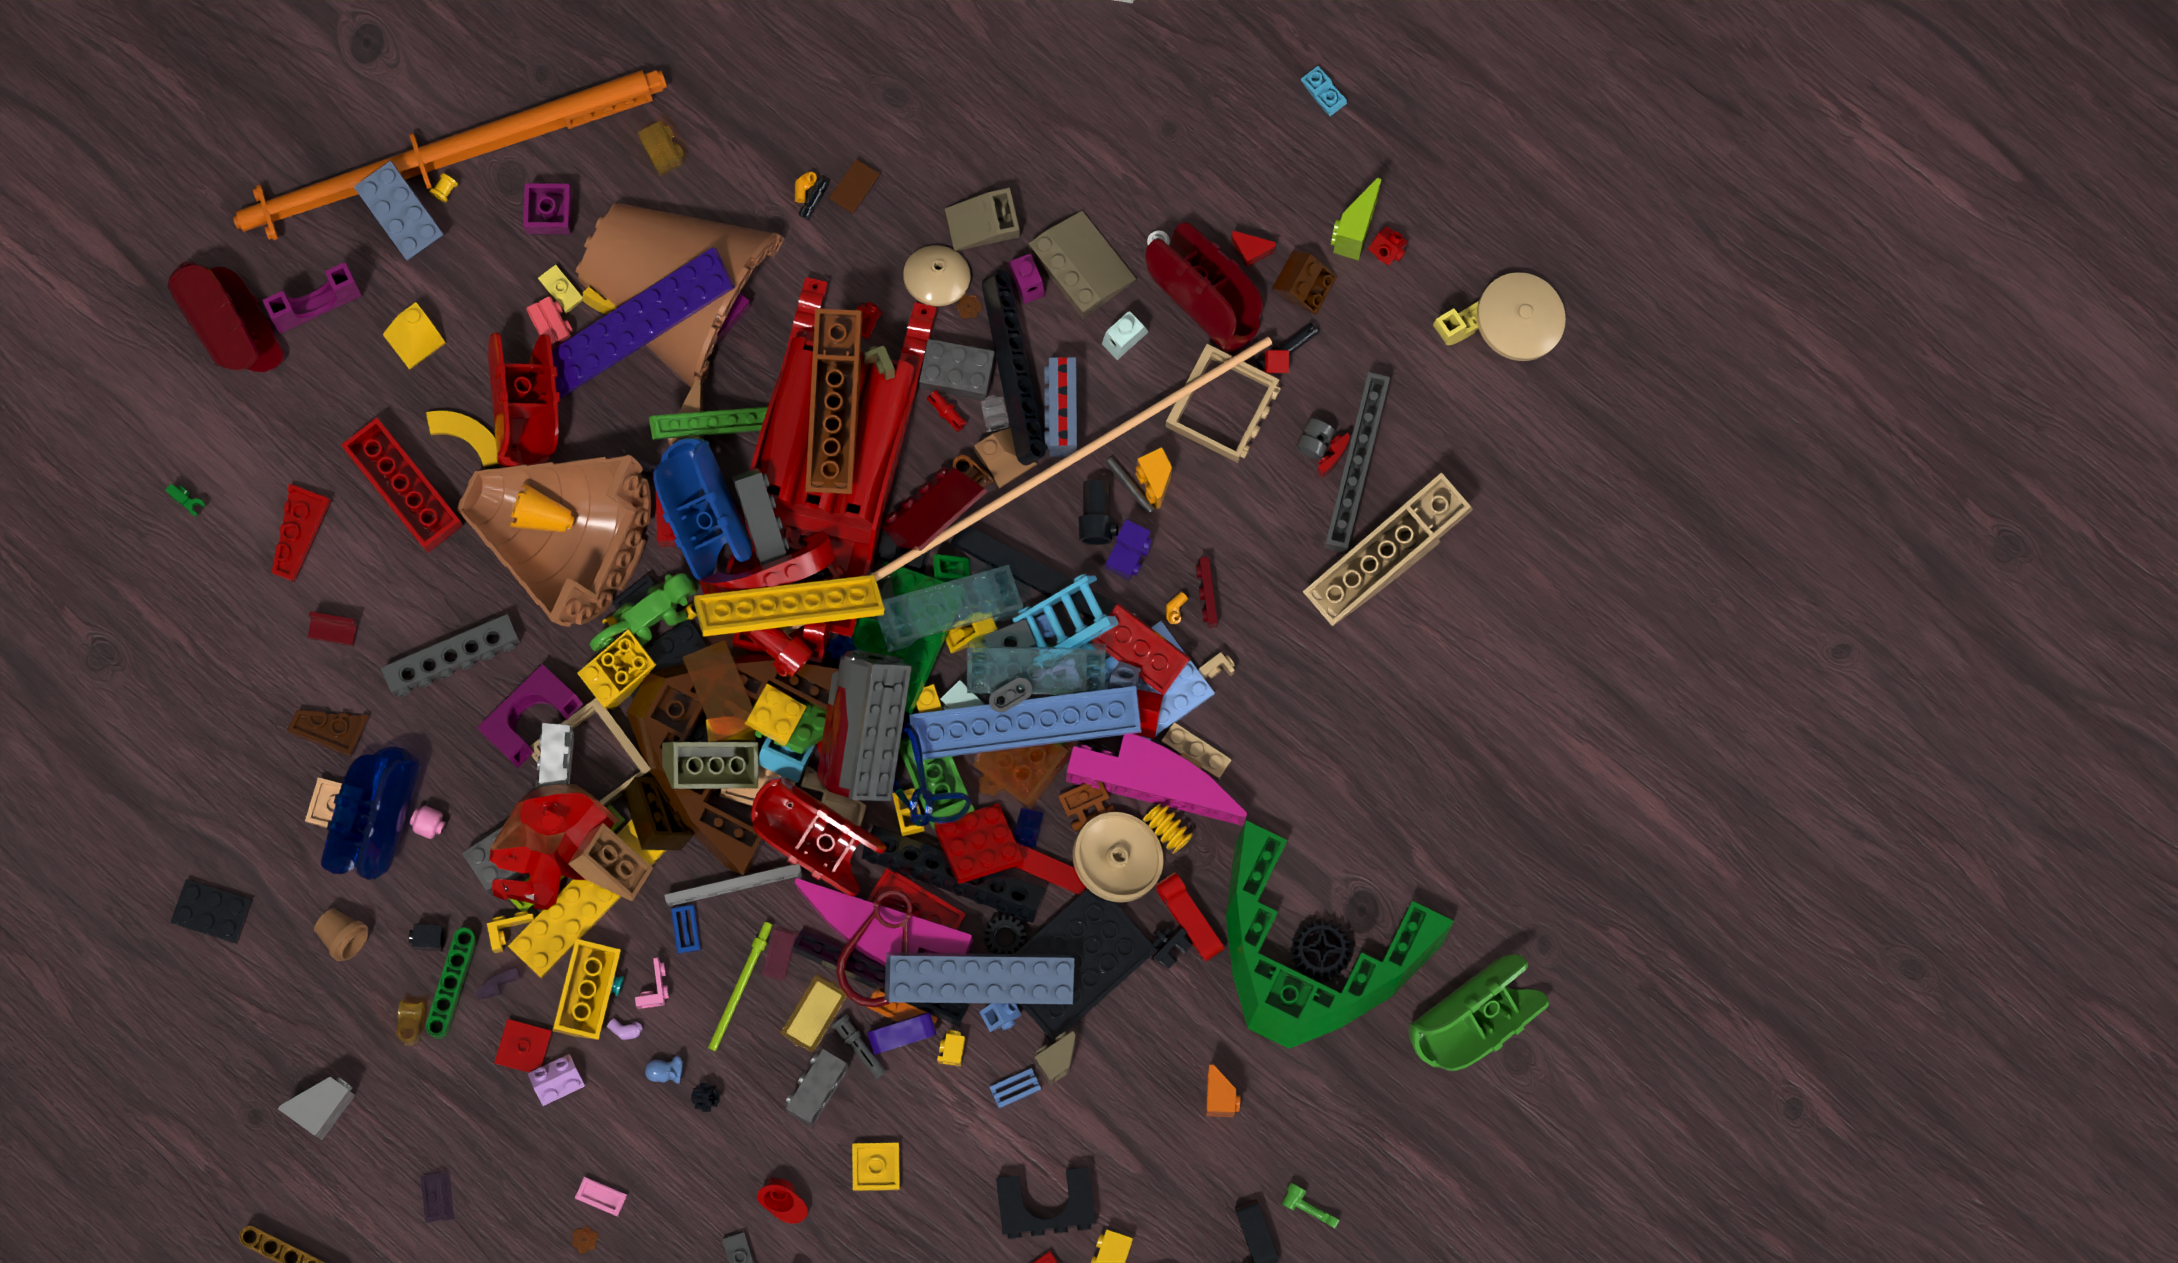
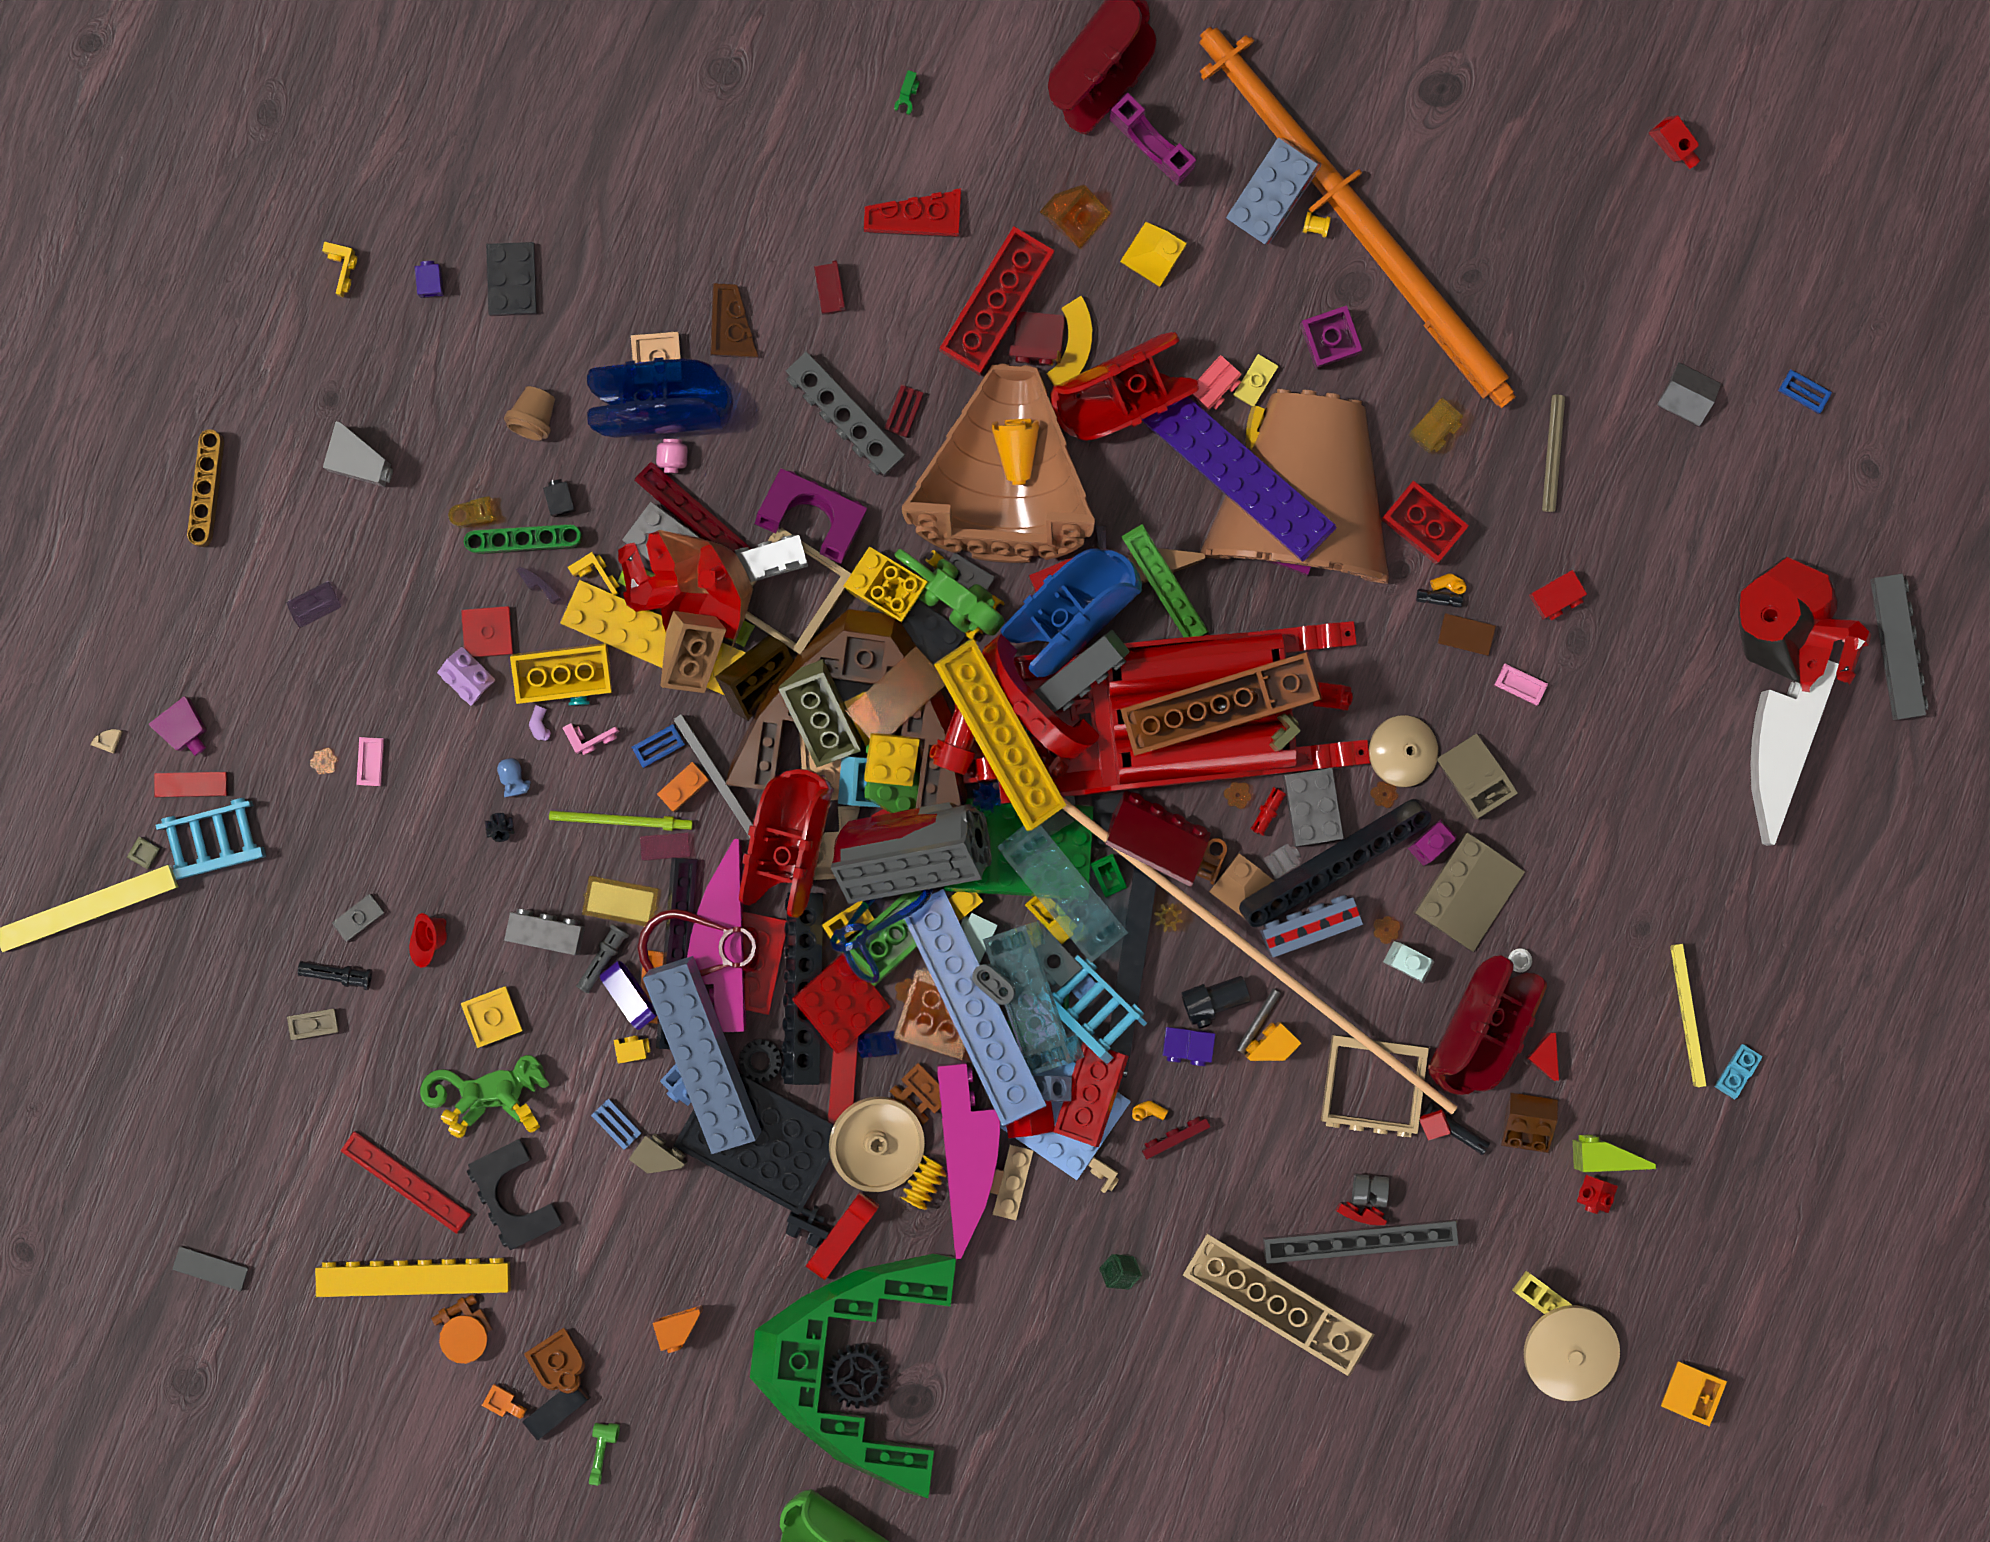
camera: 70 degrees right, 10 degrees up
(125, 1059) = (337, 253): none -> yellow bracket
(182, 985) = (429, 279): none -> dark purple brick
(351, 391) = (1075, 214): none -> clear orange slope
(449, 462) = (1038, 338): none -> dark red bracket
(454, 591) = (911, 392): none -> dark red tile
(474, 829) = (687, 508): none -> dark red plate
(723, 58) = (1553, 453): none -> dark tan axle
(731, 917) = (683, 787): none -> orange brick
(742, 186) = (1424, 522): none -> red brick
(848, 96) = (1557, 595): none -> red brick
(916, 156) = (1520, 684): none -> bright pink tile
(918, 427) = (1242, 789): none -> clear orange plant
(943, 1187) = (490, 1090): none -> bright green animal
(1008, 523) = (1171, 923): none -> clear yellow gear
(1089, 340) = (1380, 925): none -> clear orange plant
(1213, 1217) = (557, 1362): none -> dark orange plate
(1258, 115) = (1688, 1015): none -> light yellow tile
(1310, 683) = (1120, 1271): none -> clear green panel
(1593, 224) = (1693, 1393): none -> light orange slope

